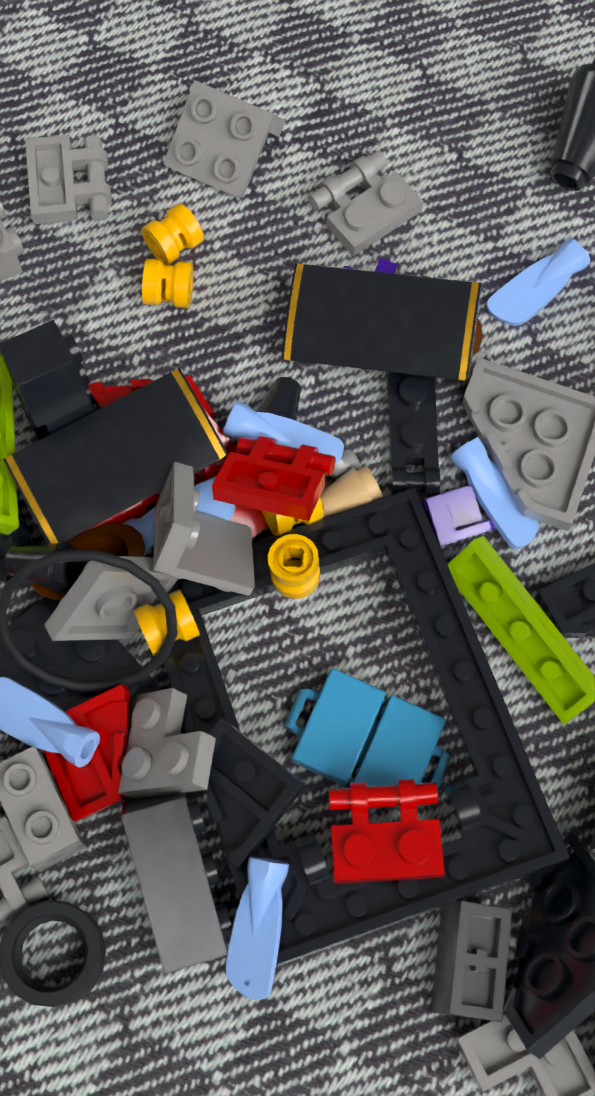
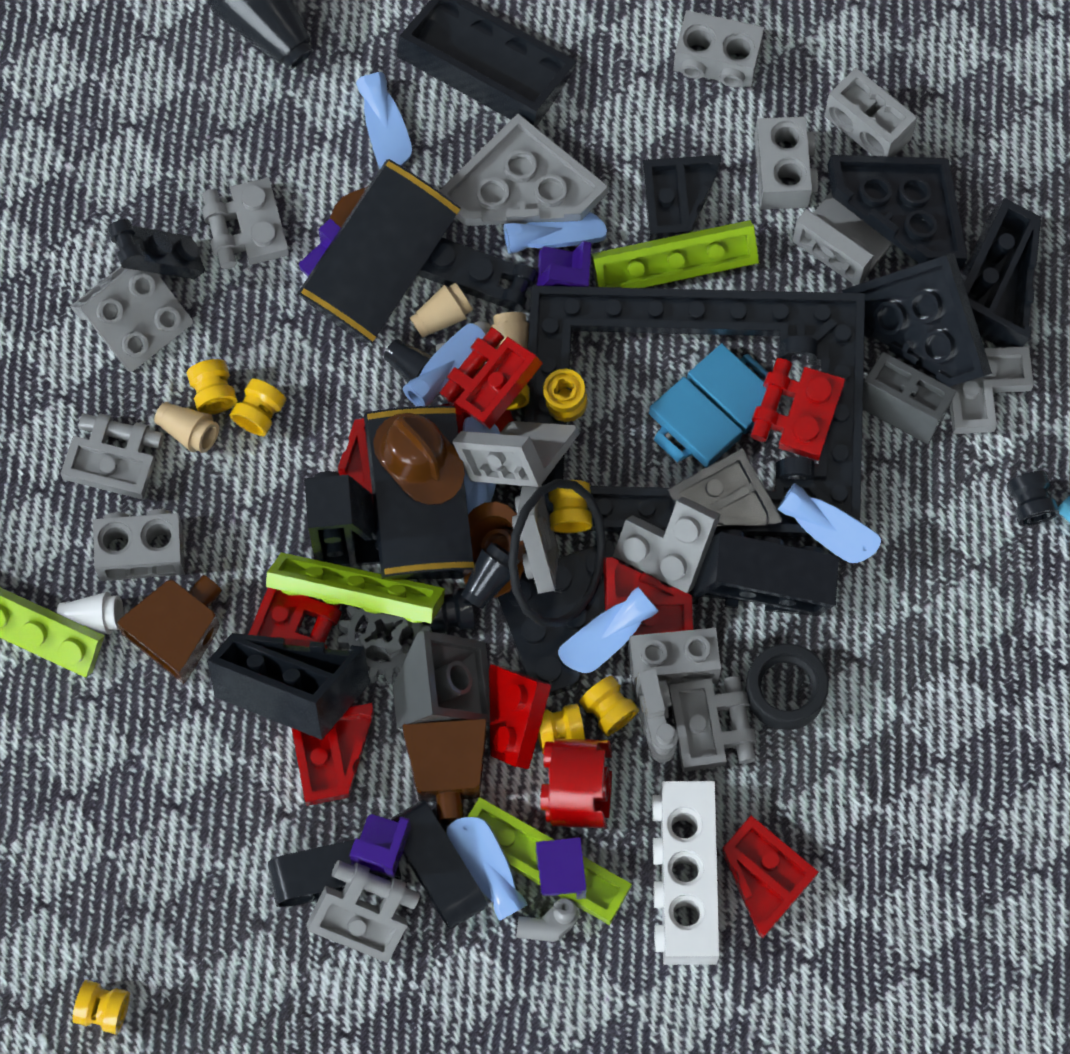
camera: 65 degrees left, 0 degrees up
(121, 233) = (189, 427): none -> tan cone
(146, 438) = (419, 458): none -> reddish brown piece
(283, 119) = (156, 250): none -> black plate
(354, 416) = (442, 310): none -> tan cone

